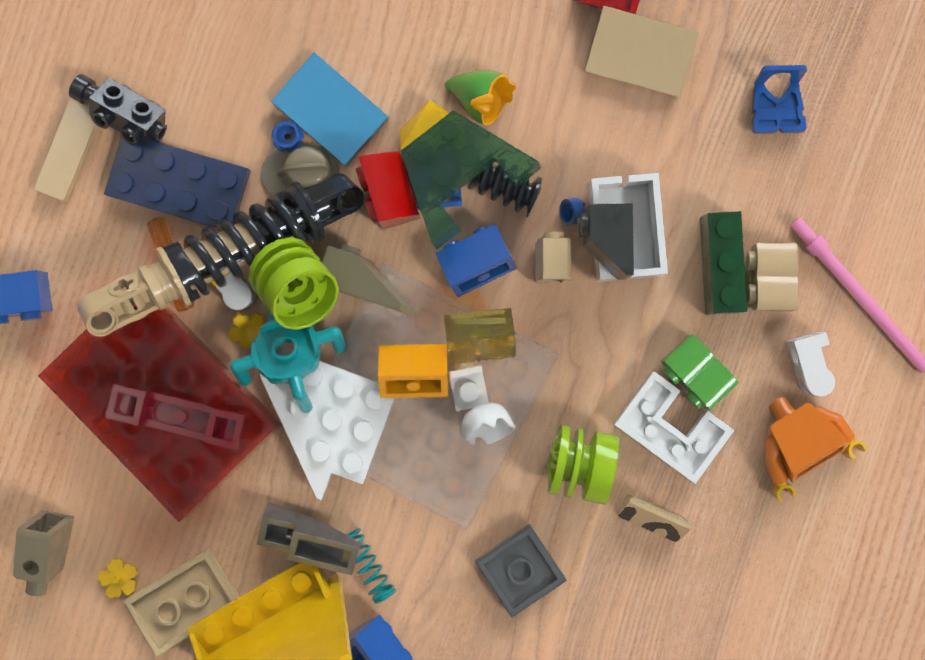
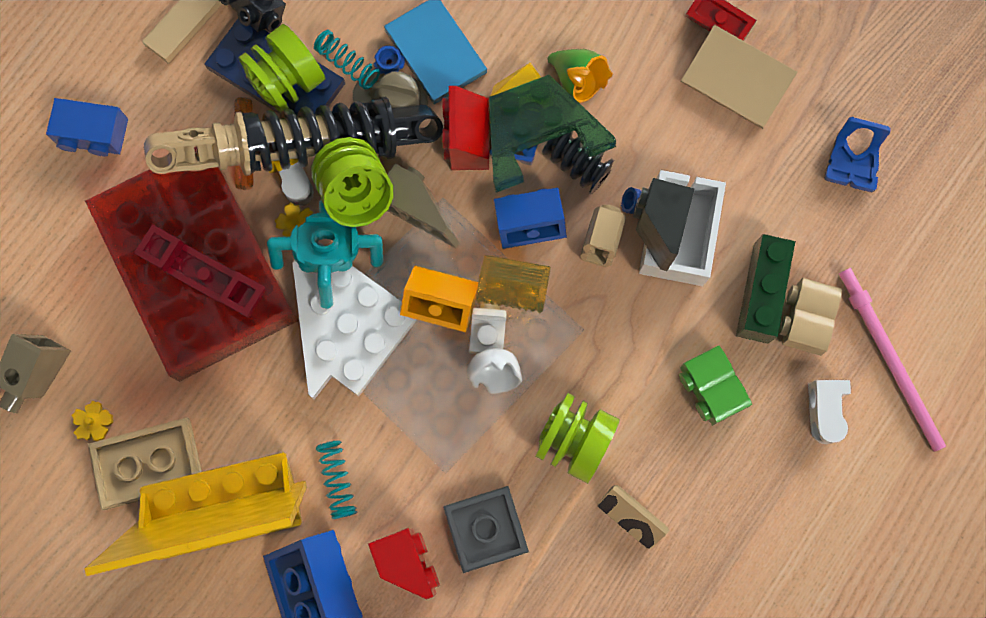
camera: 10 degrees right, 10 degrees down
(185, 186) = (282, 68): none -> lime wheel
(213, 140) = (327, 46): none -> teal piece
(307, 540) = (286, 434): flat silver slope -> none
(454, 629) = (402, 563): none -> red slope
(685, 454) = (680, 461): white plate -> none
(804, 441) = (802, 482): orange torso -> none

